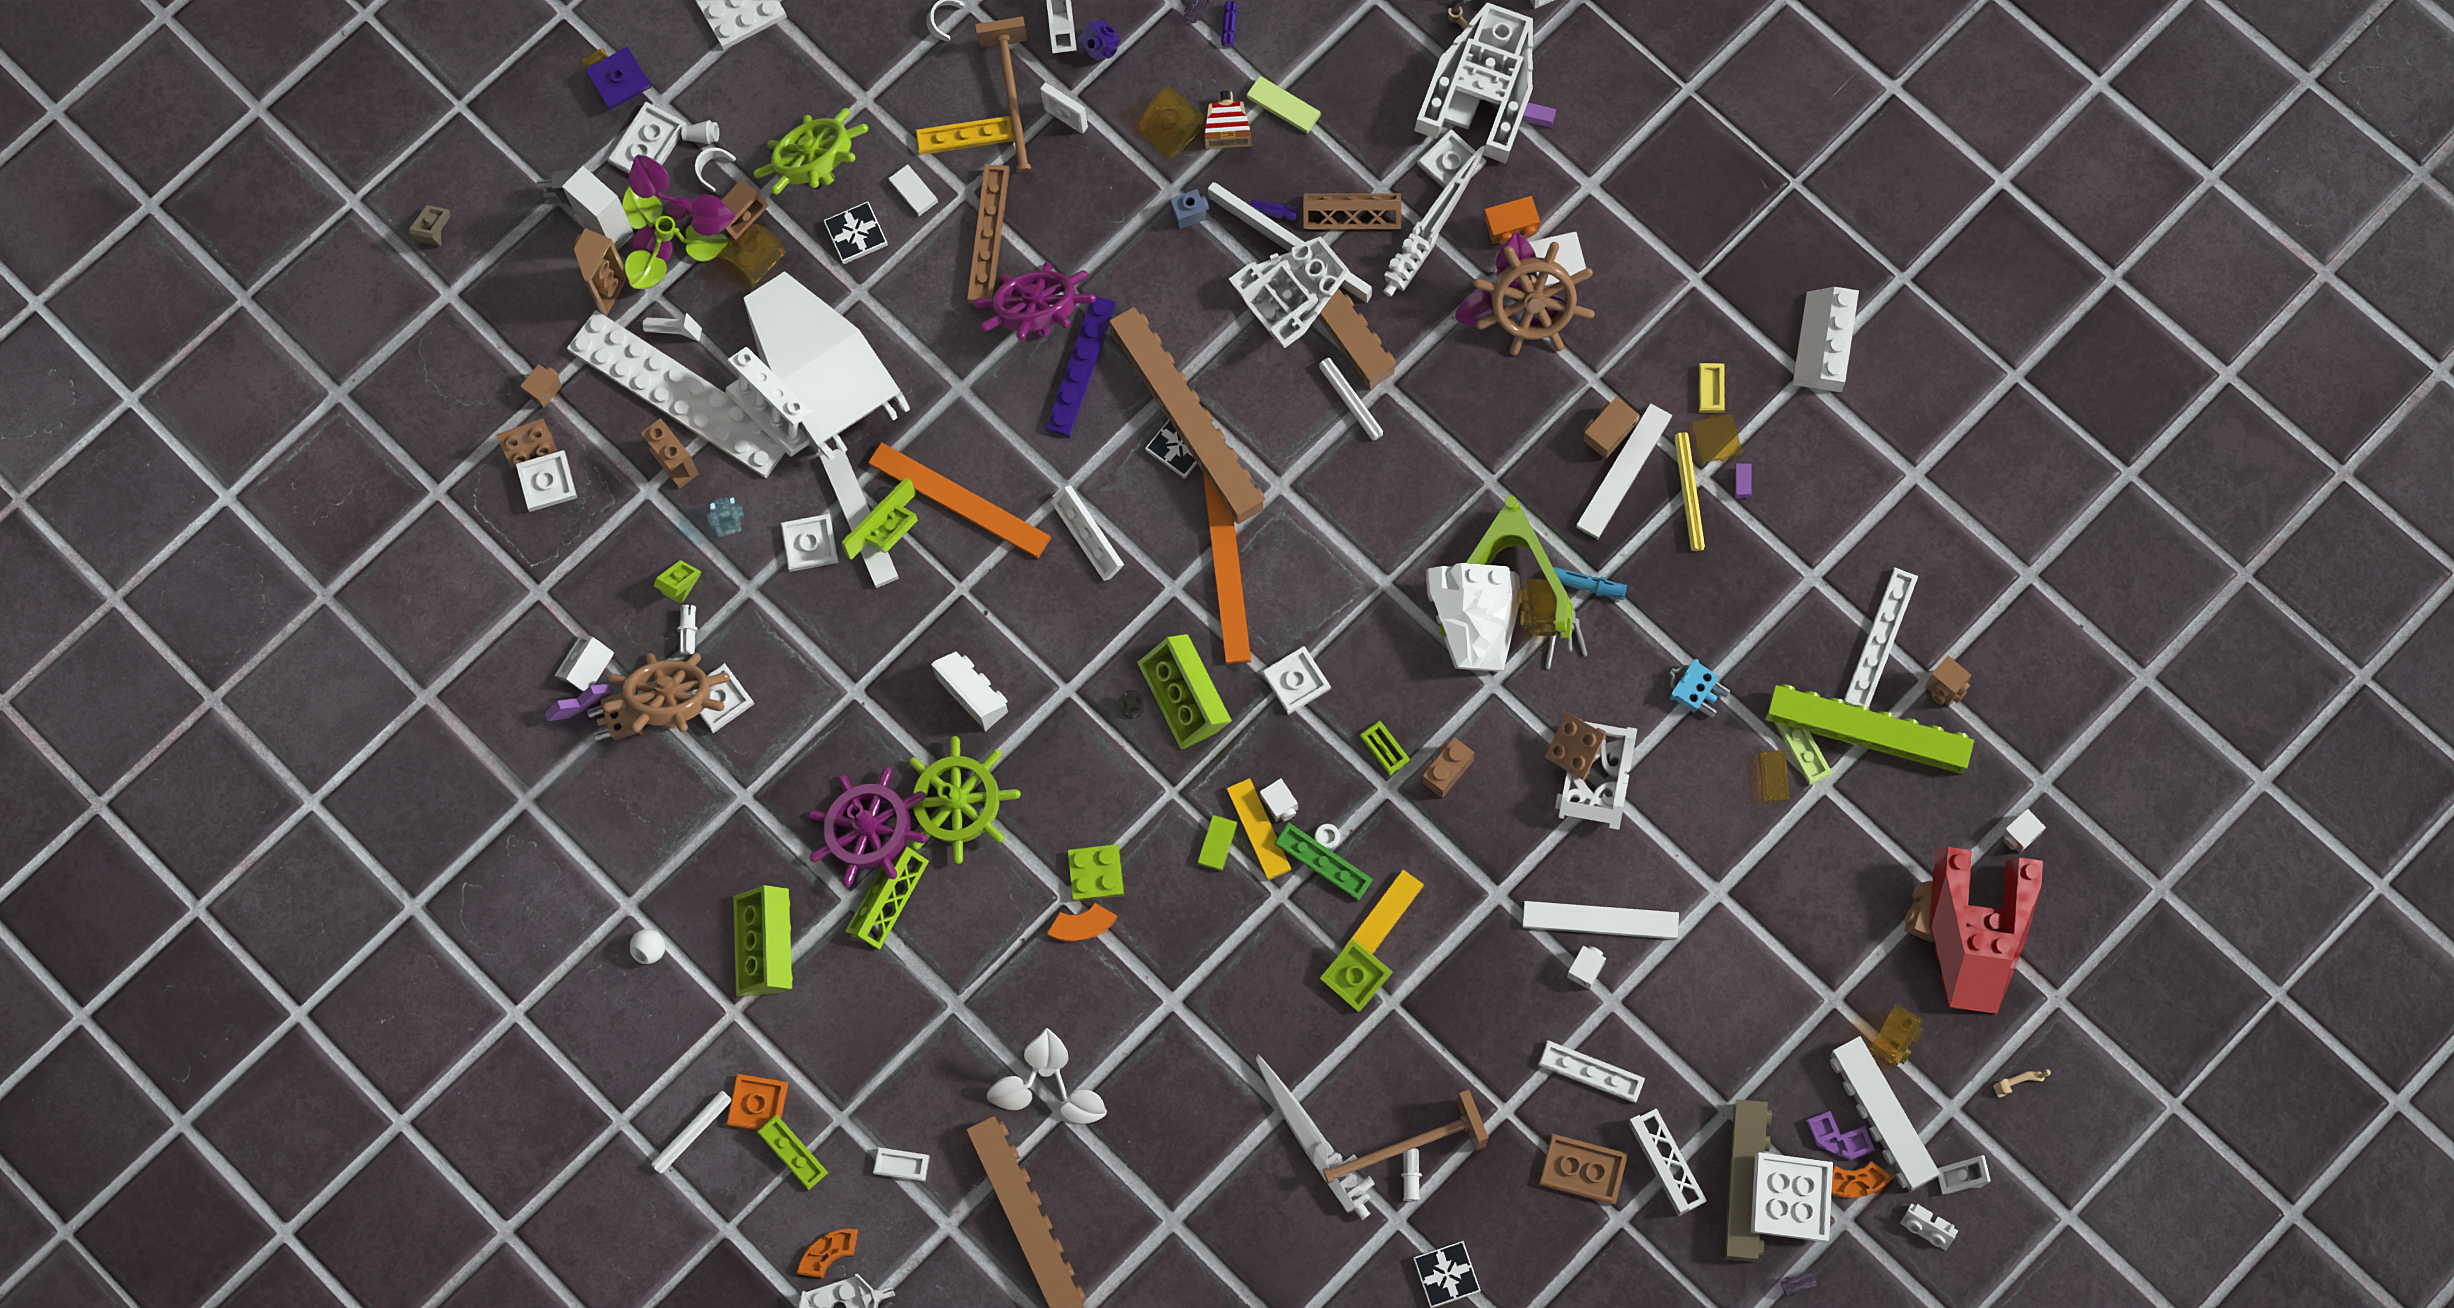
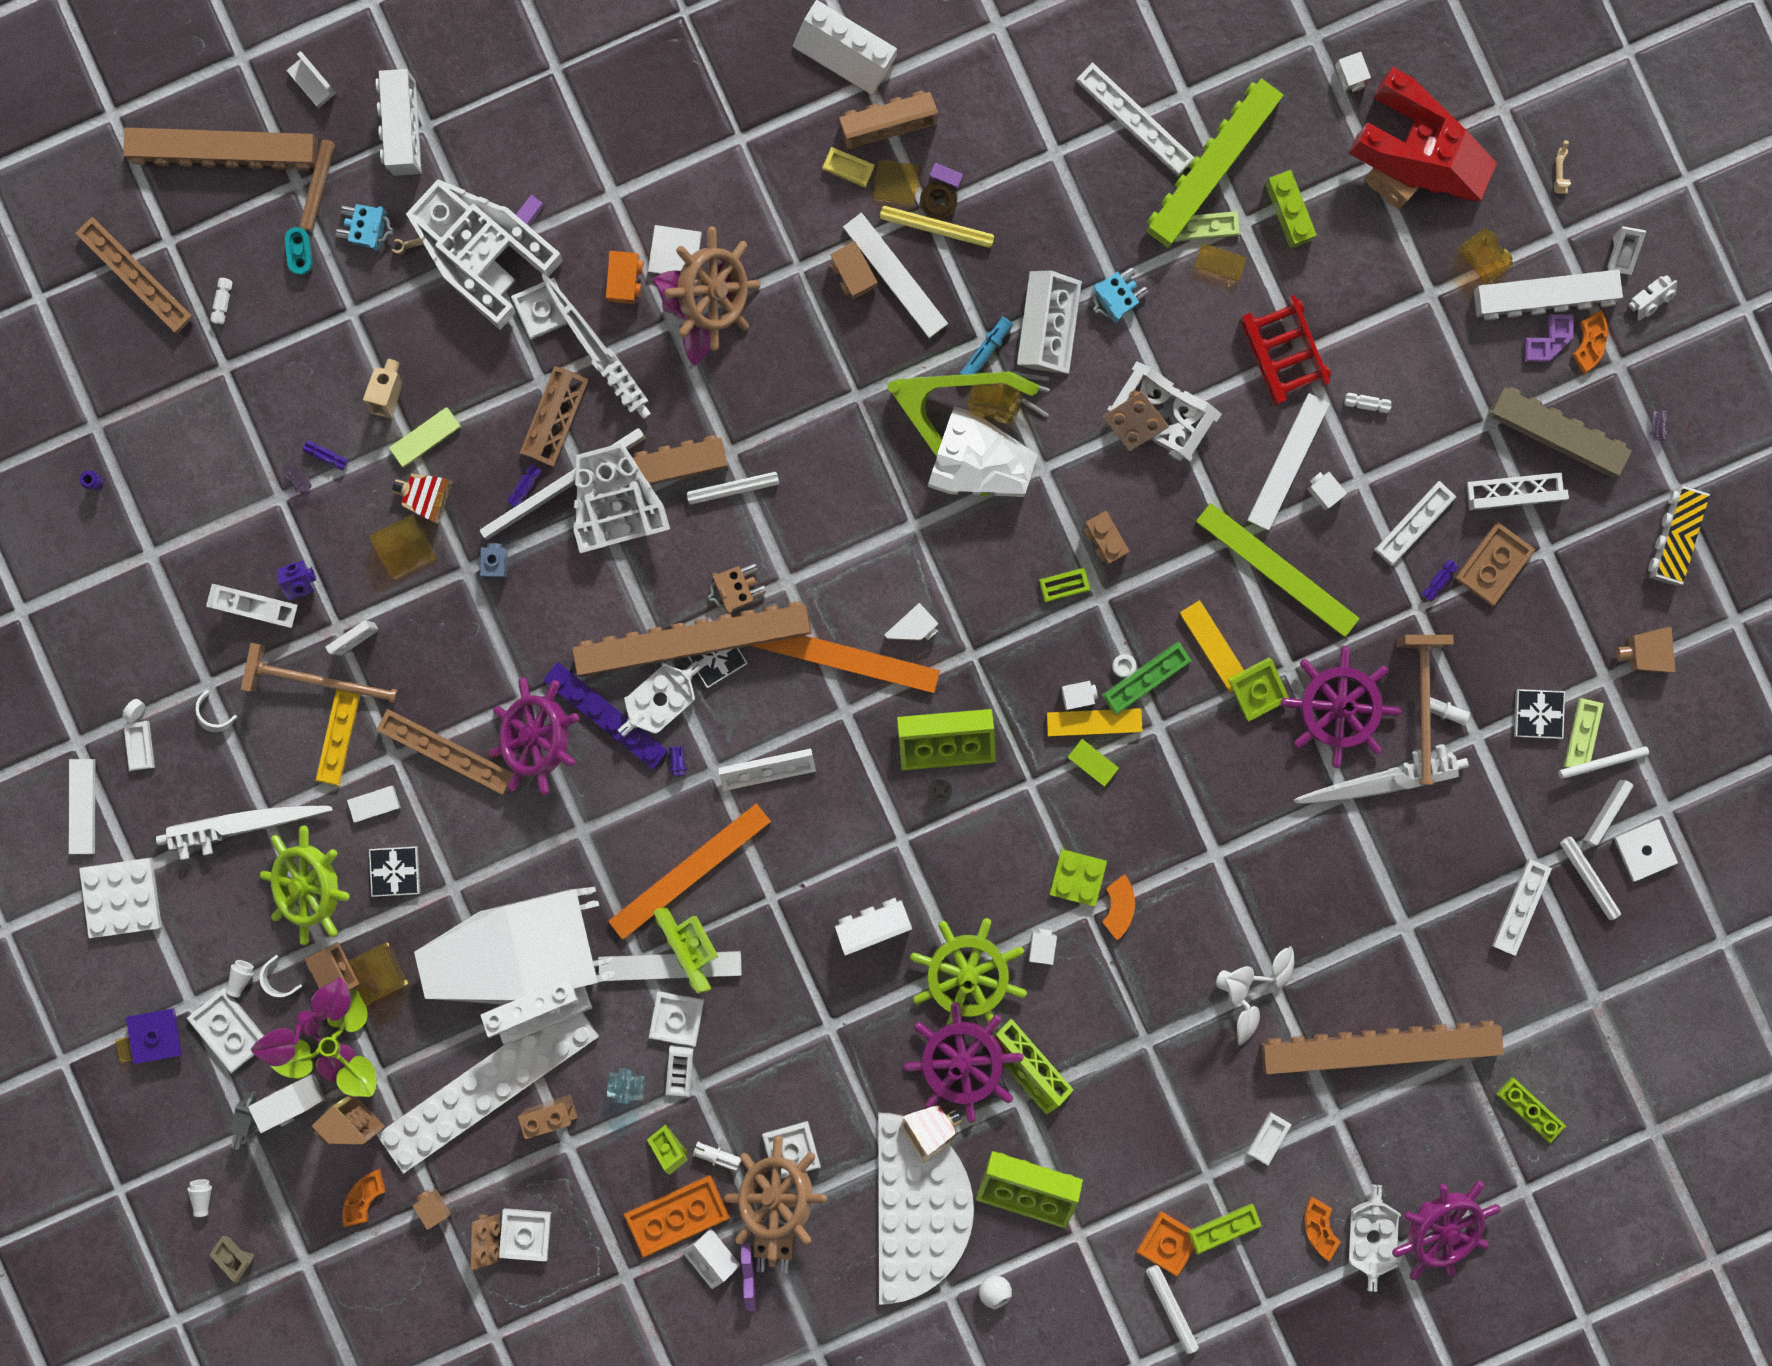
camera: 75 degrees left, 15 degrees up
(480, 175) = (200, 1196): none -> white cone
(529, 320) = (360, 1197): none -> orange tile
(615, 616) = (676, 1216): none -> orange tile
(684, 326) = (426, 1061): white piece -> none
(707, 845) = (921, 1214): none -> white plate
(767, 552) = (682, 1051): none -> white slope
(787, 820) = (930, 1130): none -> torso
(828, 51) = (209, 830): none -> white piece
(1012, 862) = (1042, 946): none -> white brick
(1061, 448) = (677, 761): none -> dark purple pin
(1102, 393) = (640, 703): none -> white plate
(1250, 429) = (729, 594): none -> medium nougat piece
(1285, 617) = (914, 626): none -> white slope
(1296, 680) = (972, 637): white tile -> none
(1312, 48) = (383, 390): none -> tan torso
(1371, 1065) = (1341, 707): none -> magenta piece
(1486, 951) = (1277, 570): none -> lime tile
(1543, 1119) = (1440, 580): none -> dark purple axle
(1641, 632) = (1049, 322): none -> white slope
(1694, 976) = (1367, 402): none -> white axle
(1705, 847) = (1261, 347): none -> red fence
(1726, 478) = (938, 189): none -> dark brown gear
(1772, 404) = (888, 120): none -> medium nougat slope
(1791, 1197) = (1592, 401): white plate -> none
(1856, 822) = (1290, 209): none -> lime brick
(1948, 682) = (1202, 77): medium nougat brick -> none

